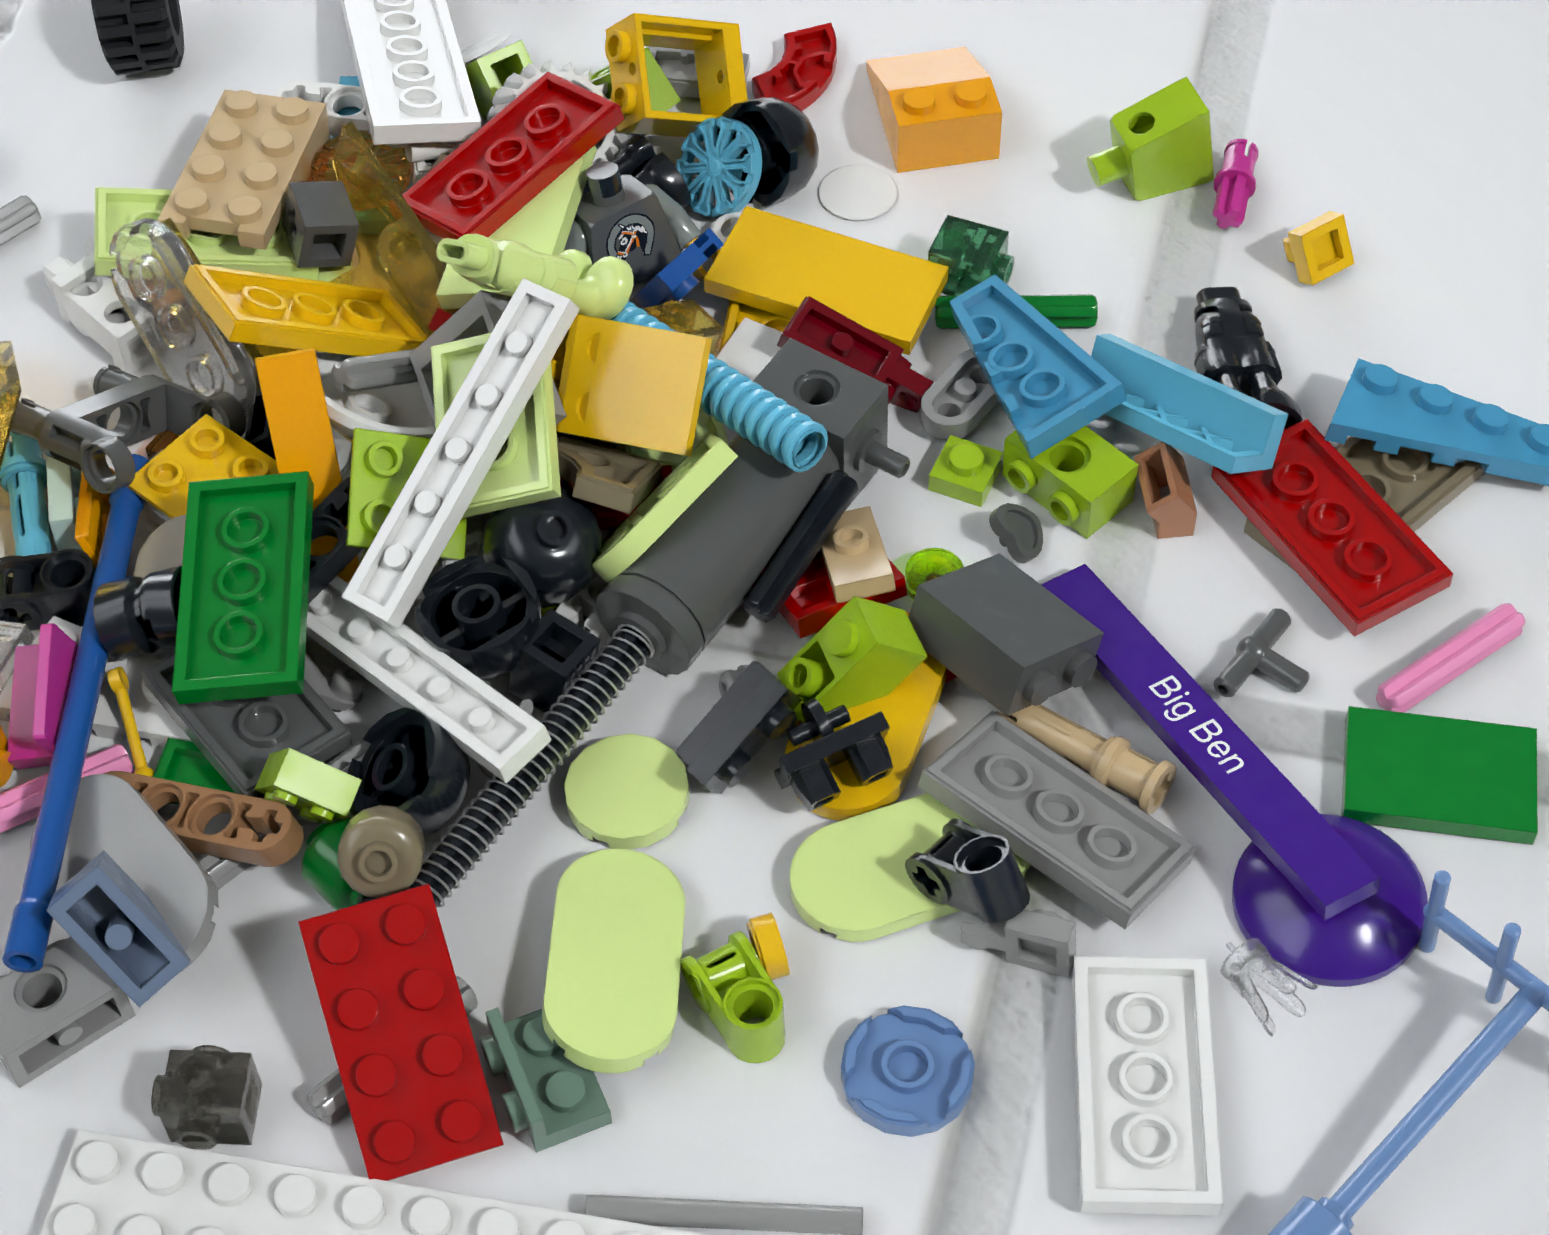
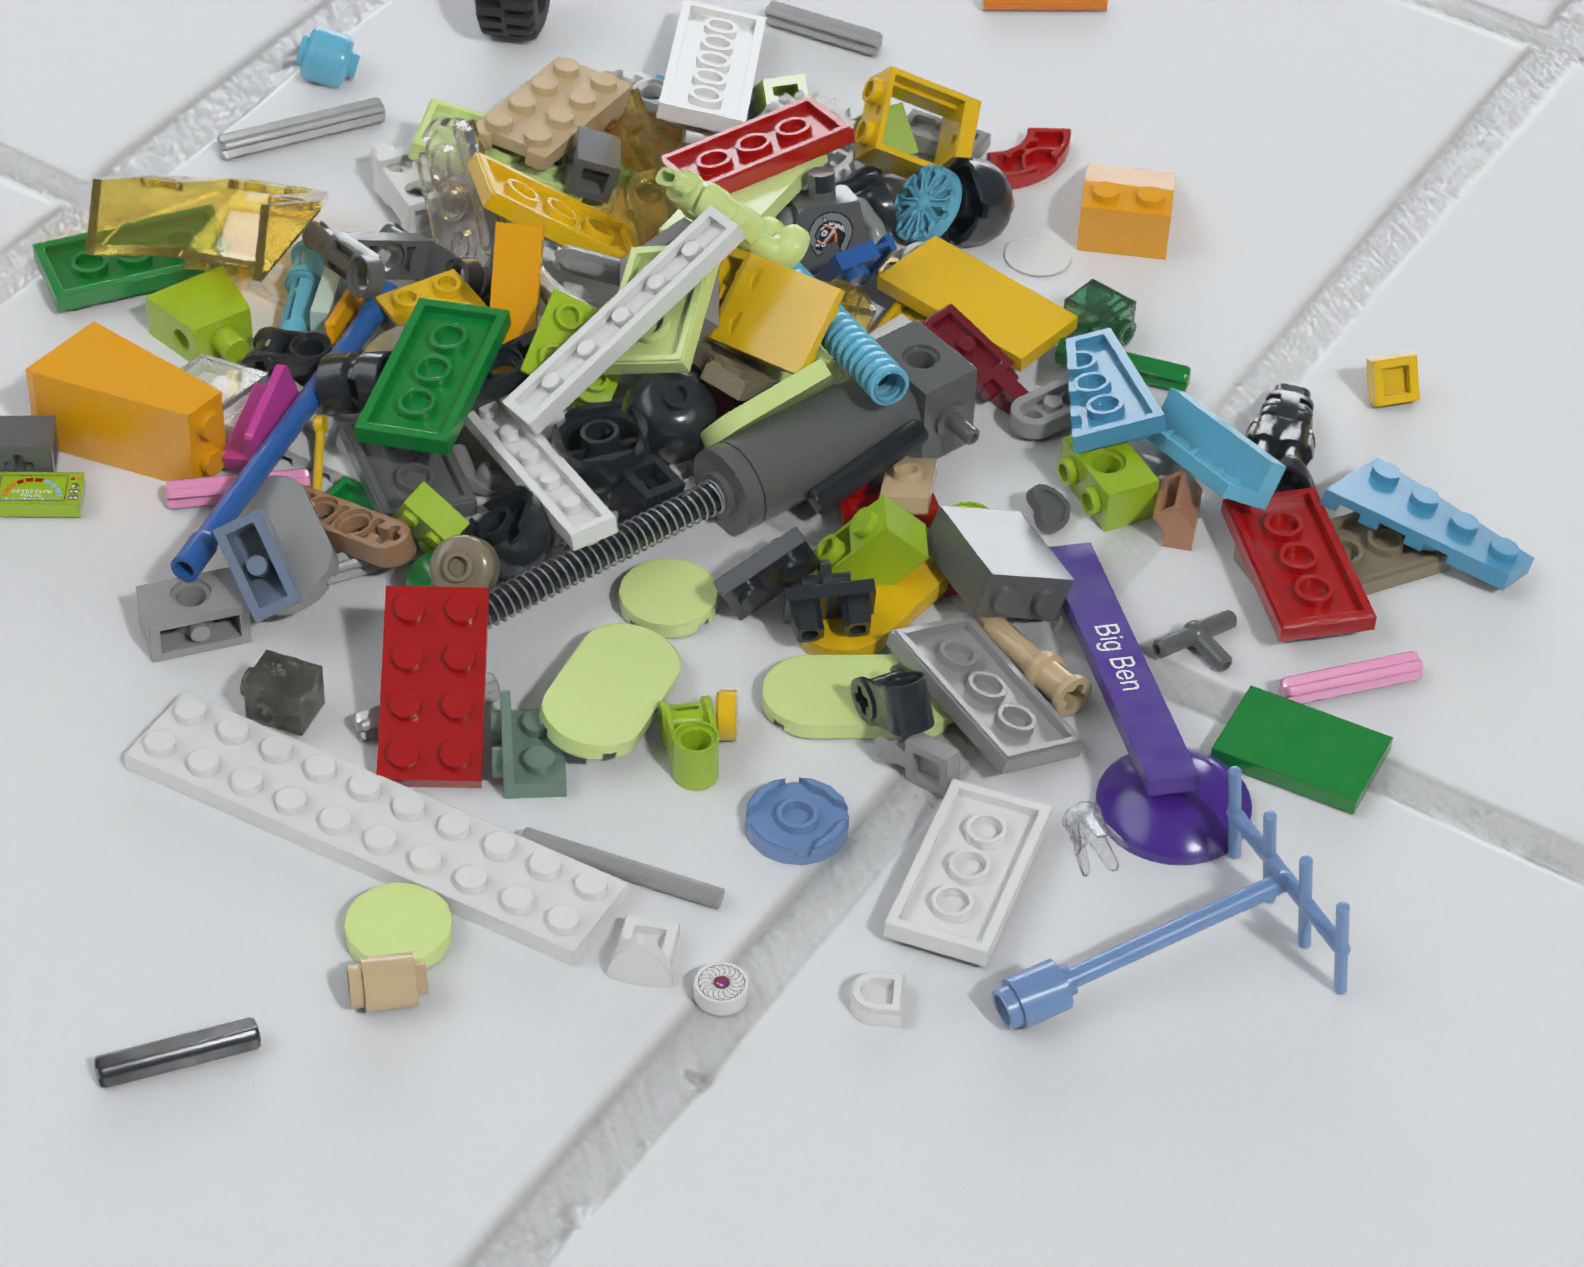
camera: 15 degrees right, 10 degrees down
(965, 471) = (1027, 461): lime plate -> none
(1158, 144) = (1291, 274): lime torso -> none
(1235, 183) = (1347, 320): dark pink axle -> none

